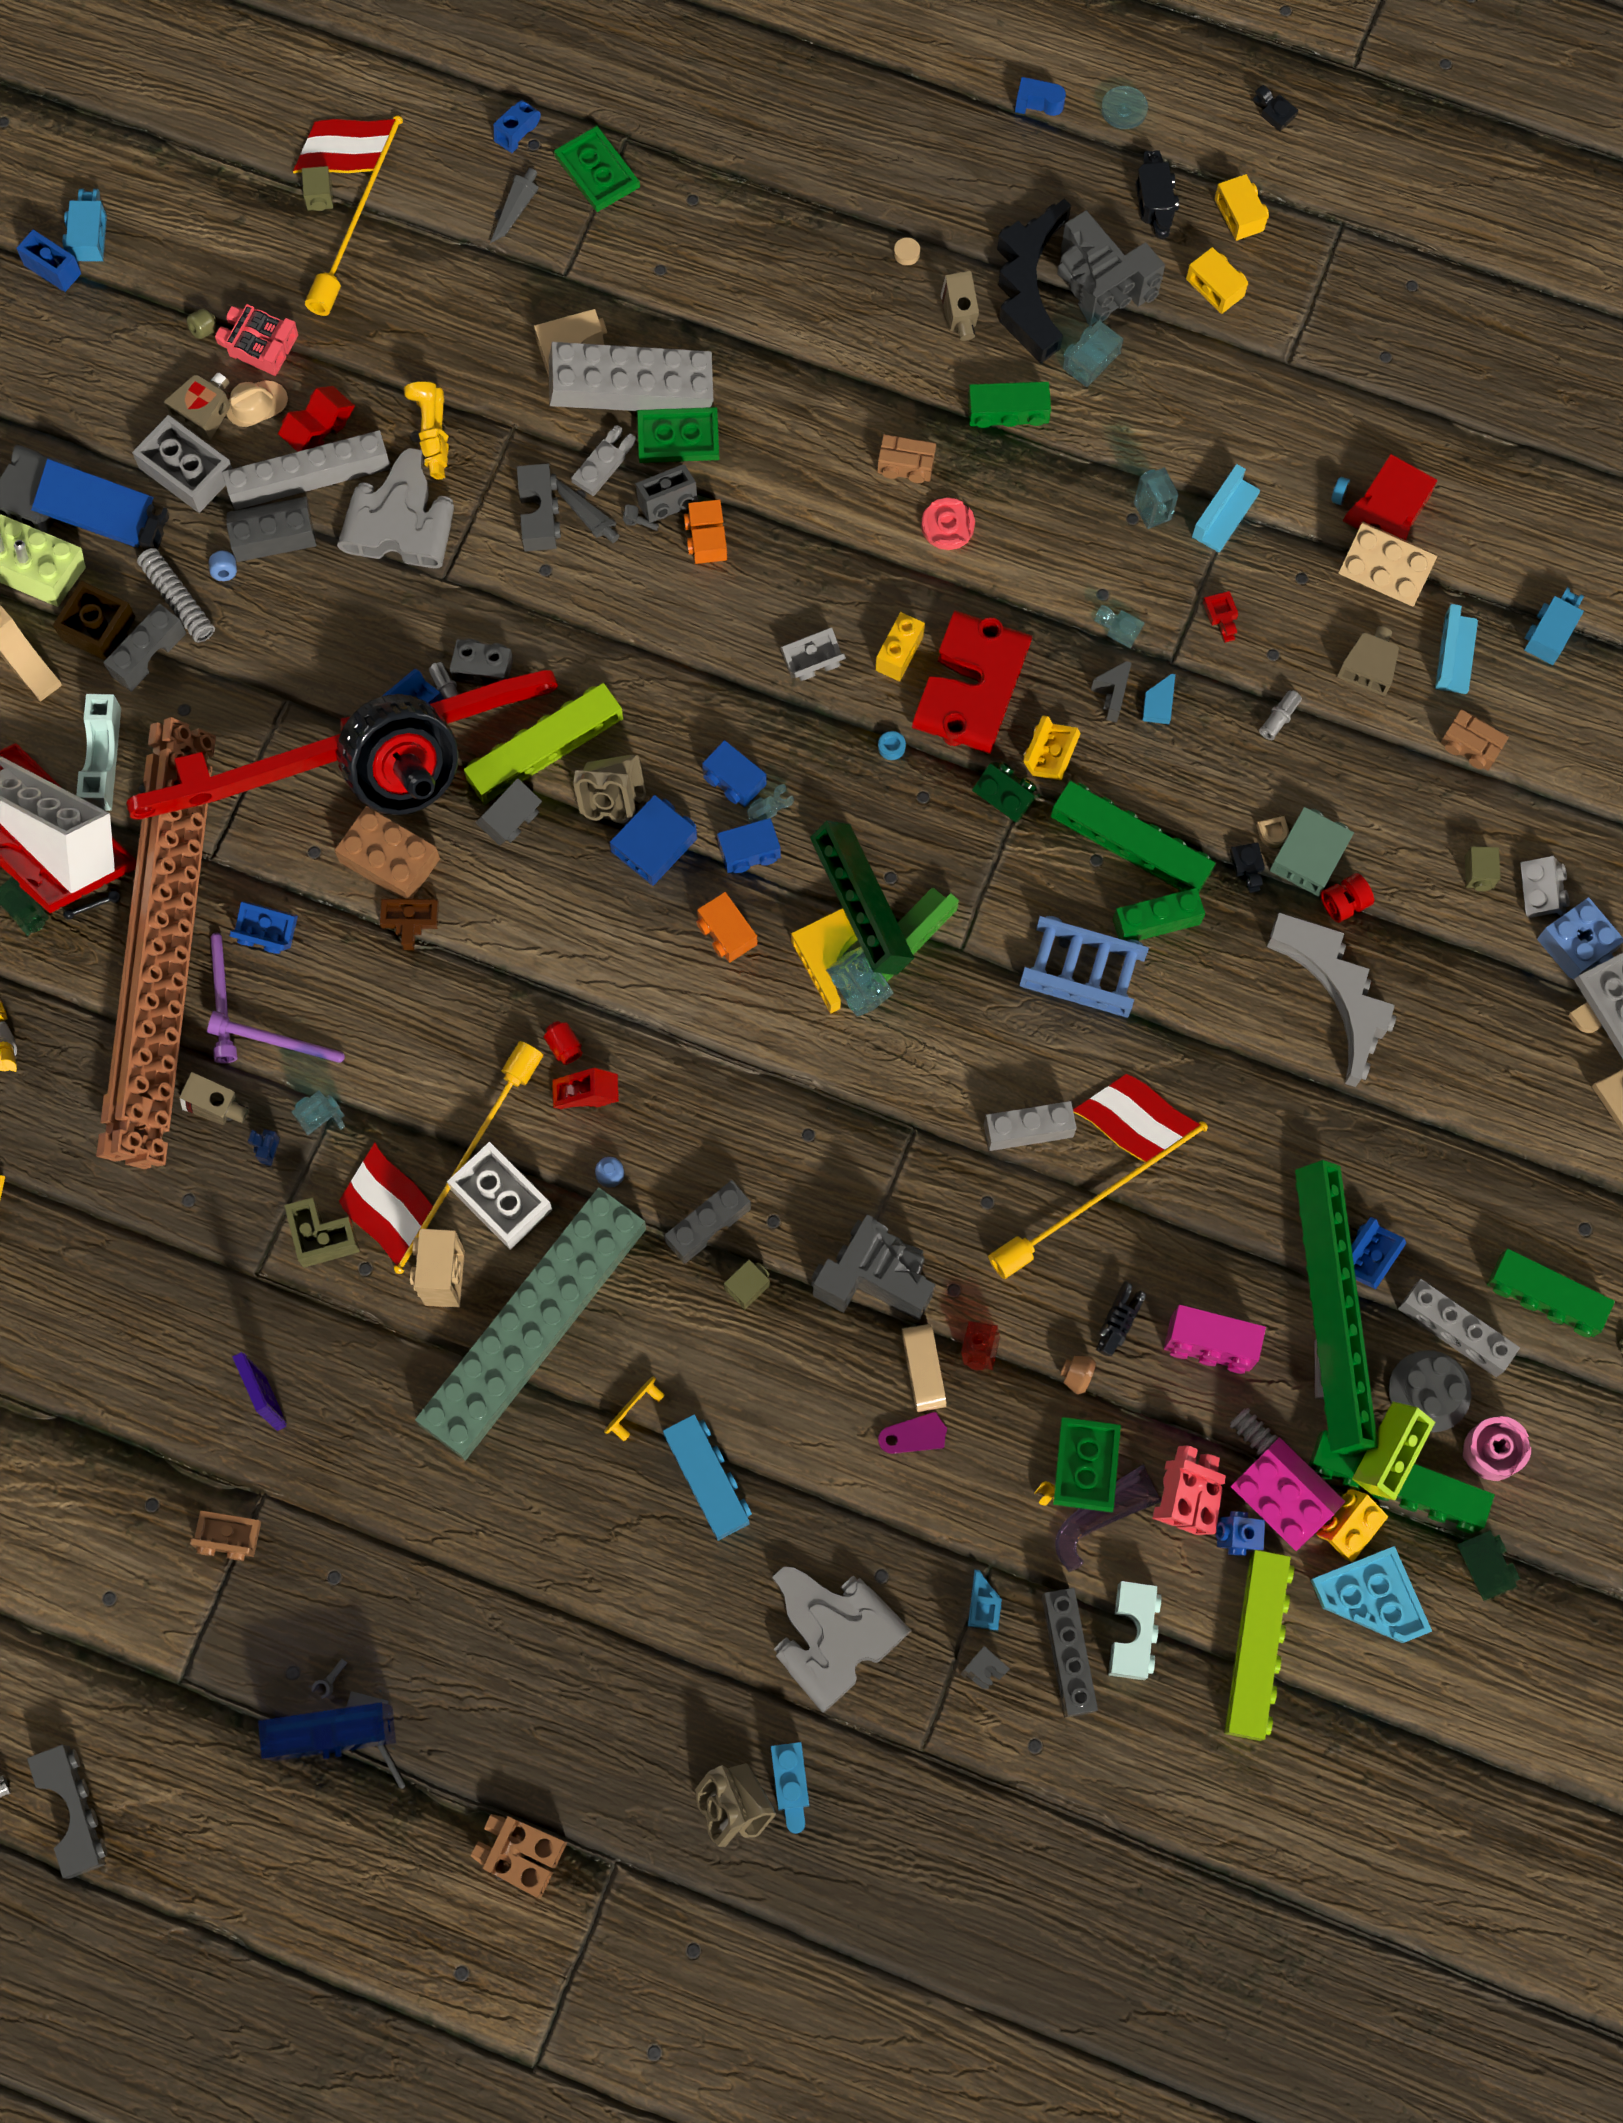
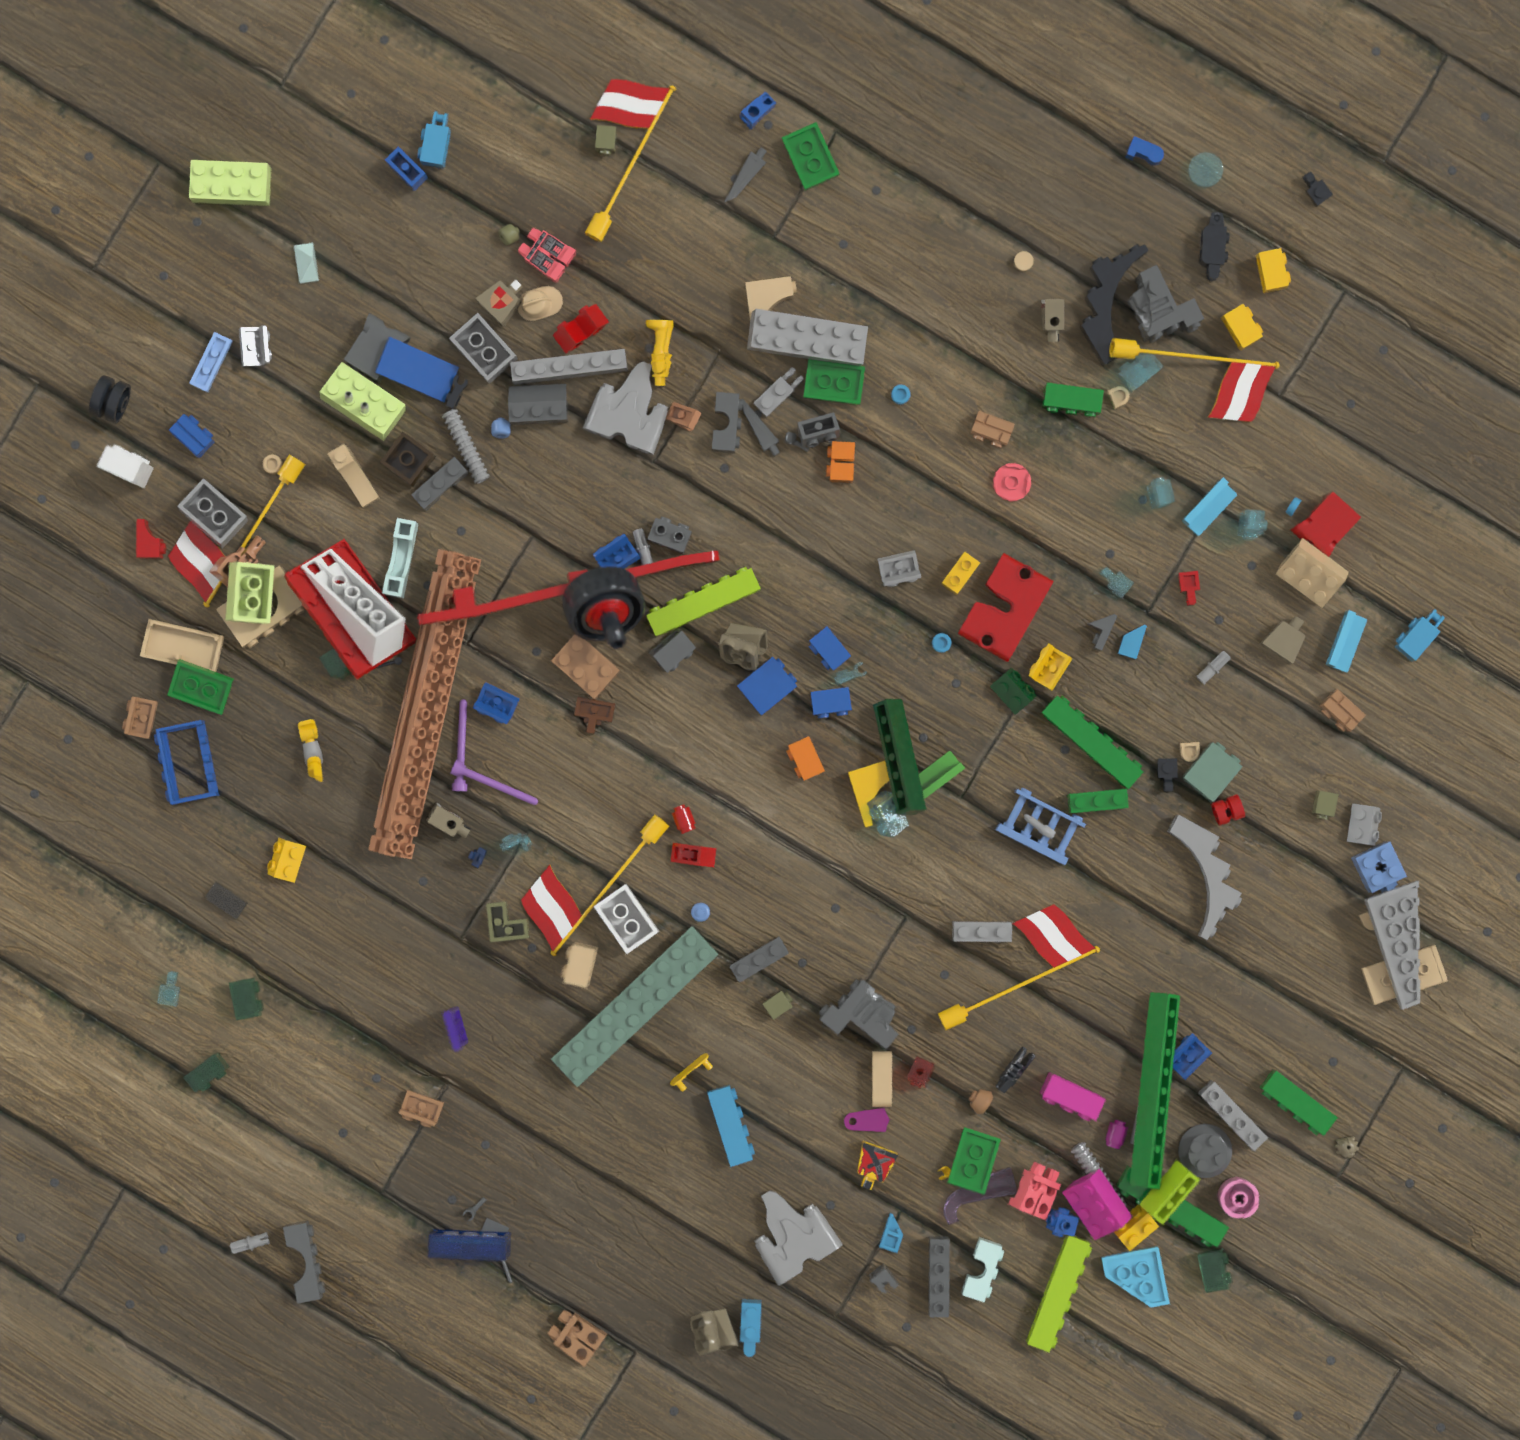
camera: 10 degrees right, 15 degrees up
(477, 509) = (683, 416): none -> nougat slope
(772, 438) = (900, 394): none -> dark azure tile
(936, 1496) = (874, 1163): none -> torso
(1070, 394) = (1118, 396): none -> tan tile
(1089, 966) = (1043, 829): none -> light grey piece
(1232, 358) = (1240, 387): none -> flag
(1289, 515) = (1251, 524): none -> clear light blue brick
(1292, 1387) = (1116, 1134): none -> magenta brick

